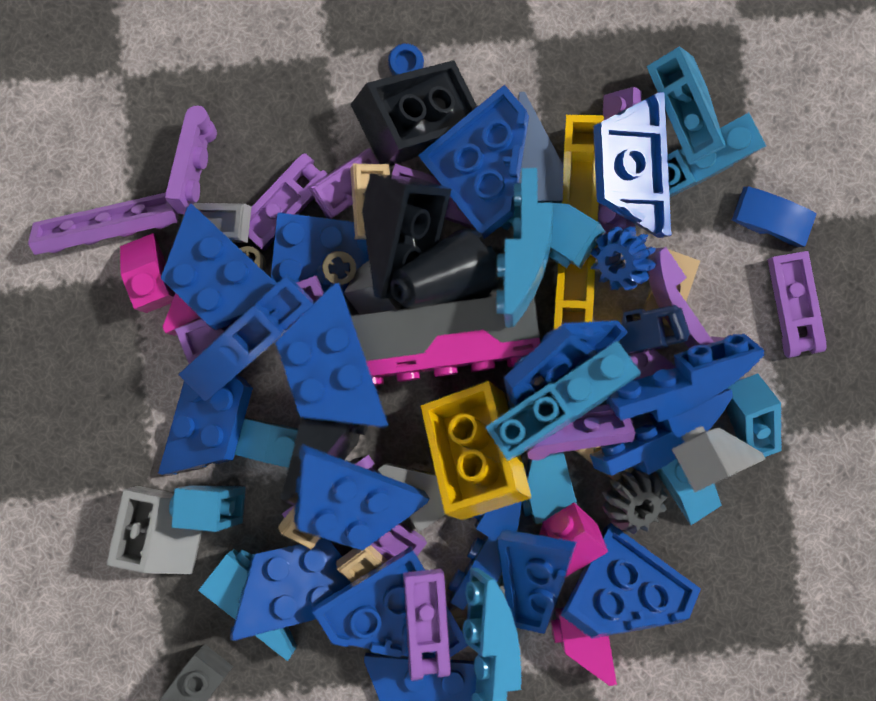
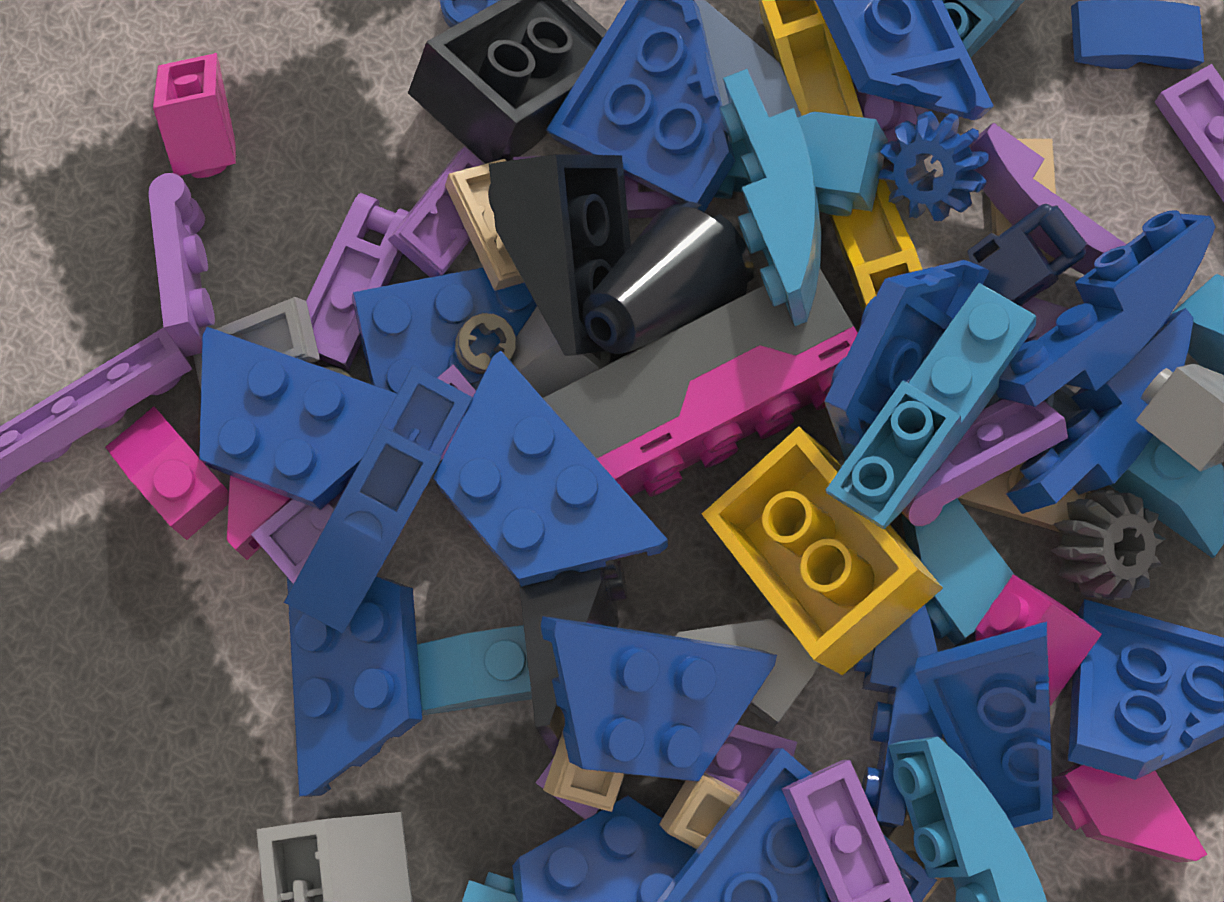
camera: 20 degrees left, 10 degrees down
(207, 507) = (406, 809): dark azure slope -> none
(228, 74) = (194, 116): none -> dark pink slope

